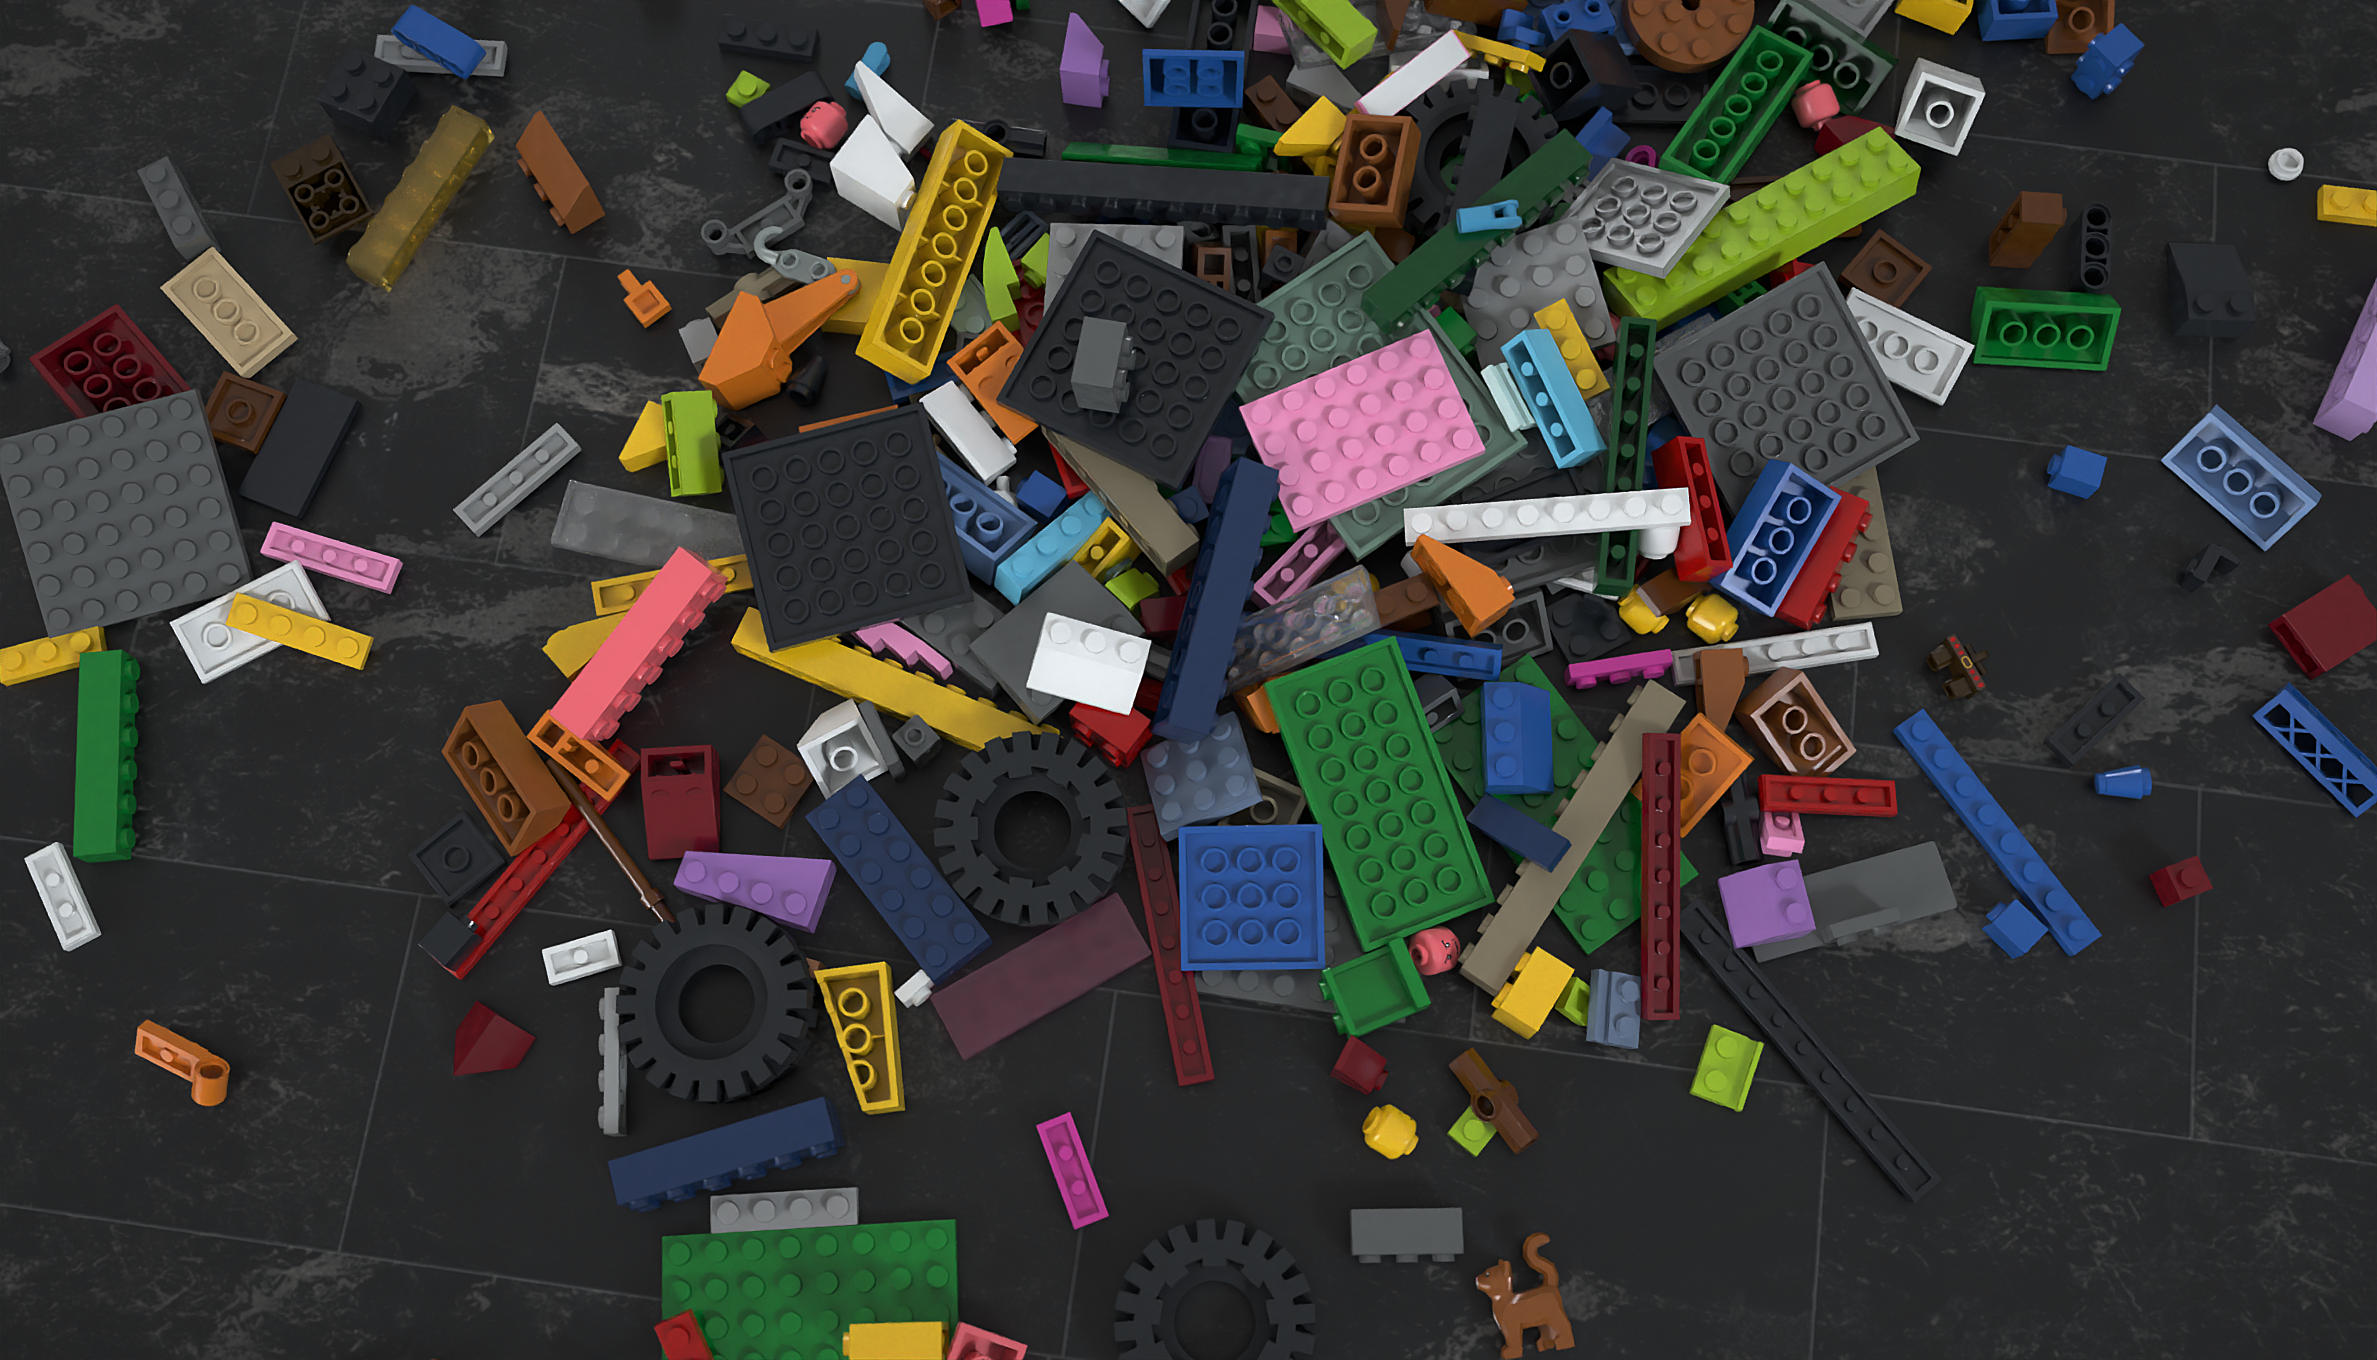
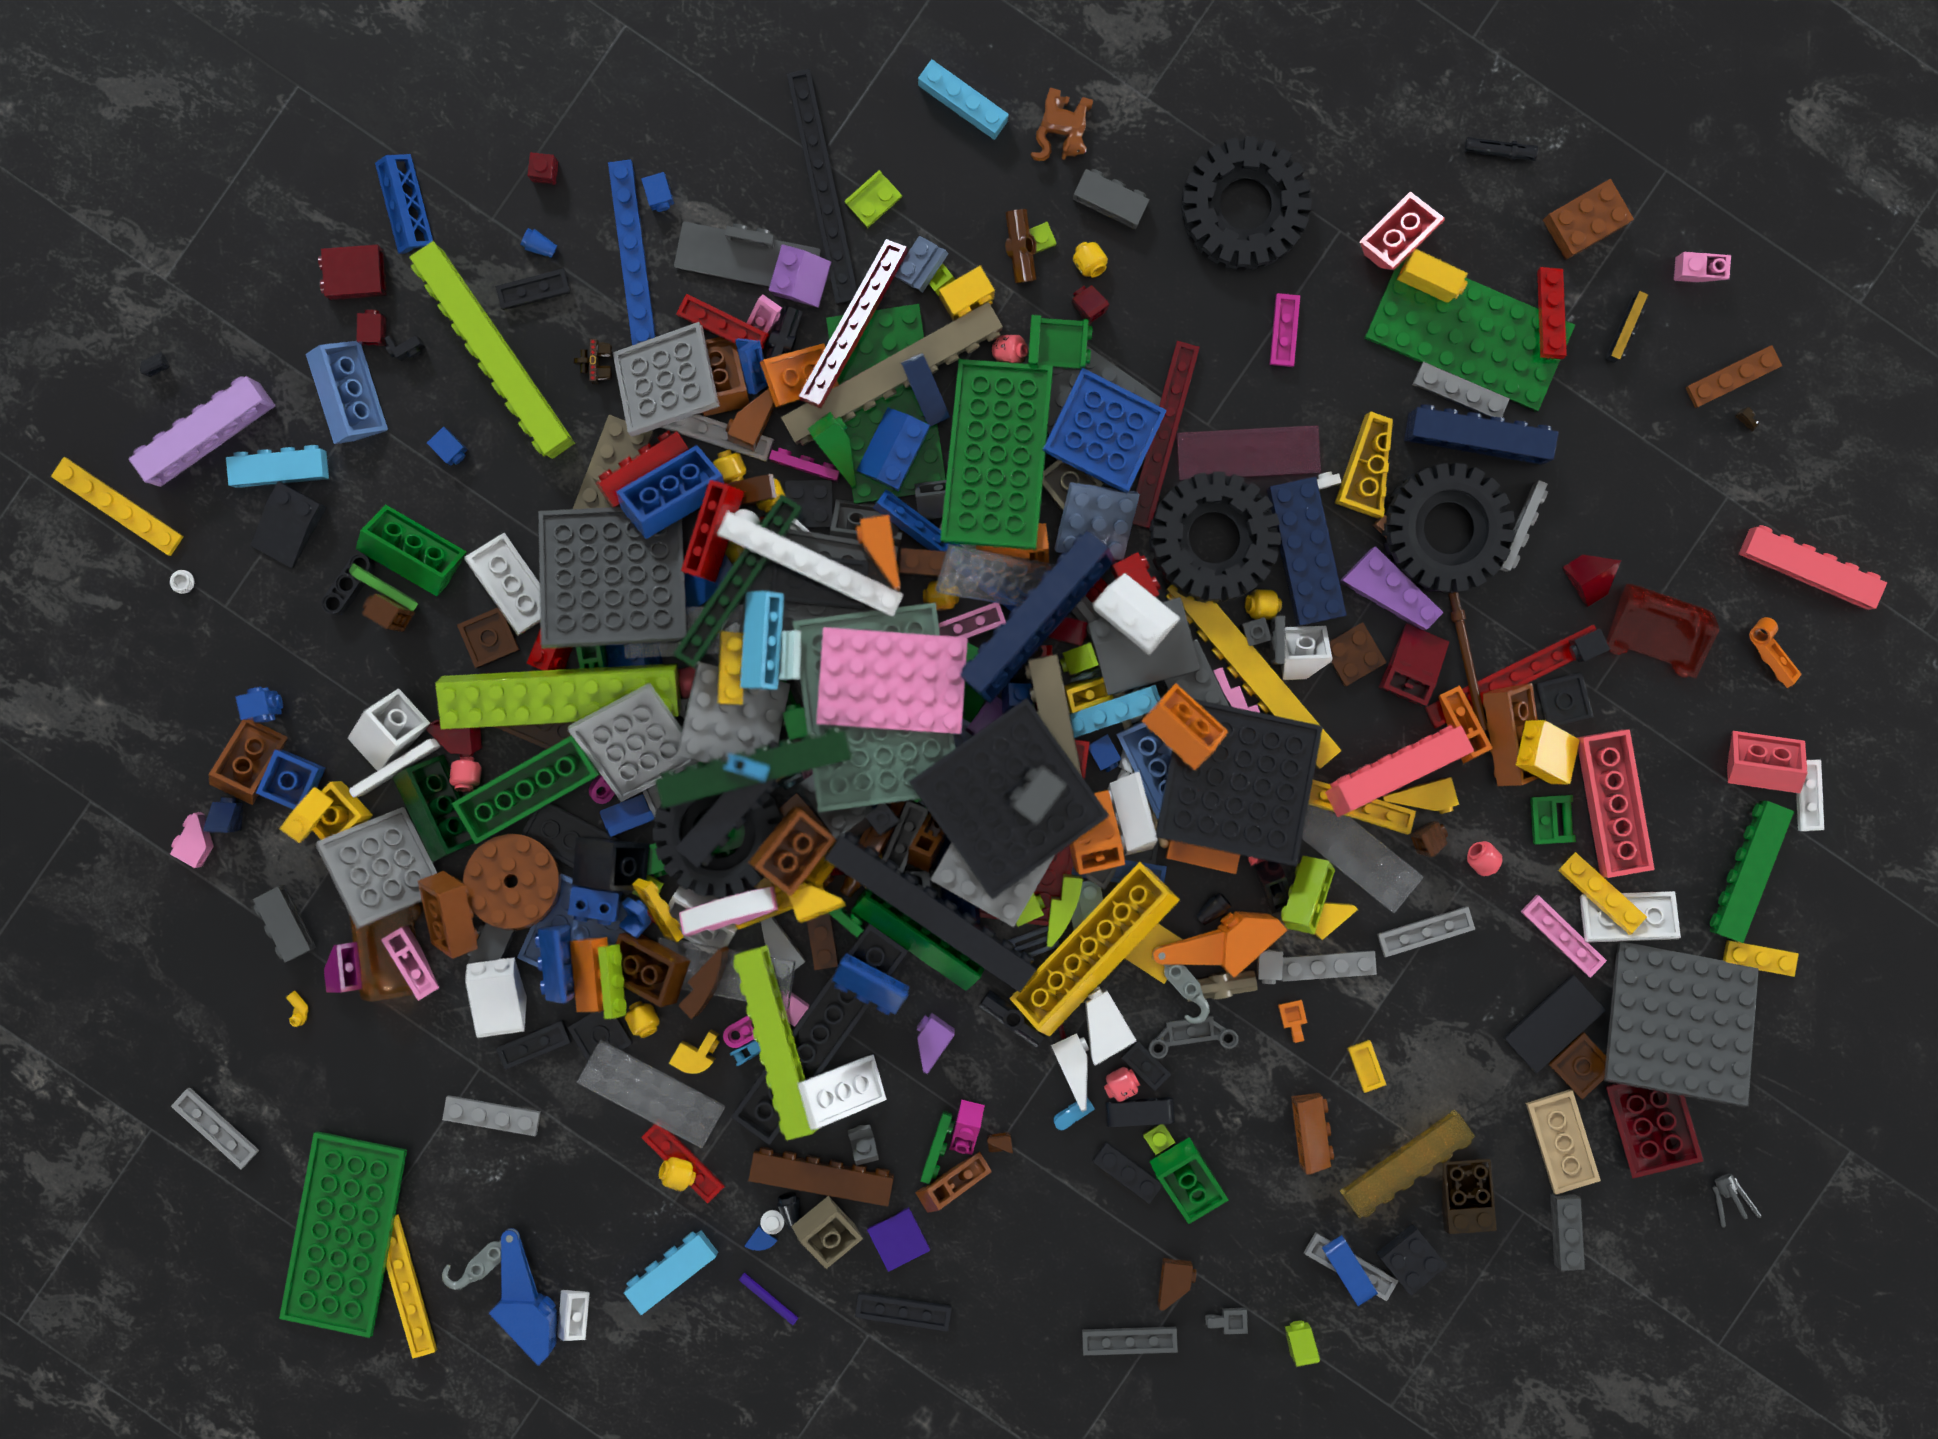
camera: 160 degrees left, 15 degrees up
(137, 907) = (1767, 762): none -> coral slope
(172, 1207) = (1812, 567): none -> coral brick
(329, 752) = (1615, 803): none -> coral brick
(355, 1020) = (1663, 629): none -> clear red windscreen
(417, 692) = (1545, 819): none -> green plate
(448, 768) = (1547, 752): none -> yellow brick
(478, 601) = (1484, 858): none -> coral head
(524, 289) = (1366, 1066): none -> yellow tile
(561, 585) = (1429, 838): none -> reddish brown slope
(582, 957) = (1515, 600): white plate -> none
(627, 383) = (1329, 965): none -> light grey plate
(690, 59) = (1188, 1180): none -> green slope
(923, 783) = (1263, 604): none -> yellow head
(951, 554) = (1185, 726): none -> orange slope
(1604, 703) = (835, 443): none -> green slope
(1684, 1268) = (963, 99): none -> medium azure brick
(1770, 758) = (750, 356): none -> blue panel
(1860, 680) = (665, 379): none -> light grey plate
(1906, 63) = (395, 767): none -> white tile
(2049, 261) = (383, 587): none -> bright green tile
(2101, 611) = (489, 346): none -> lime brick
(2263, 569) = (371, 328): none -> dark red brick
(2264, 345) = (282, 466): none -> medium azure brick

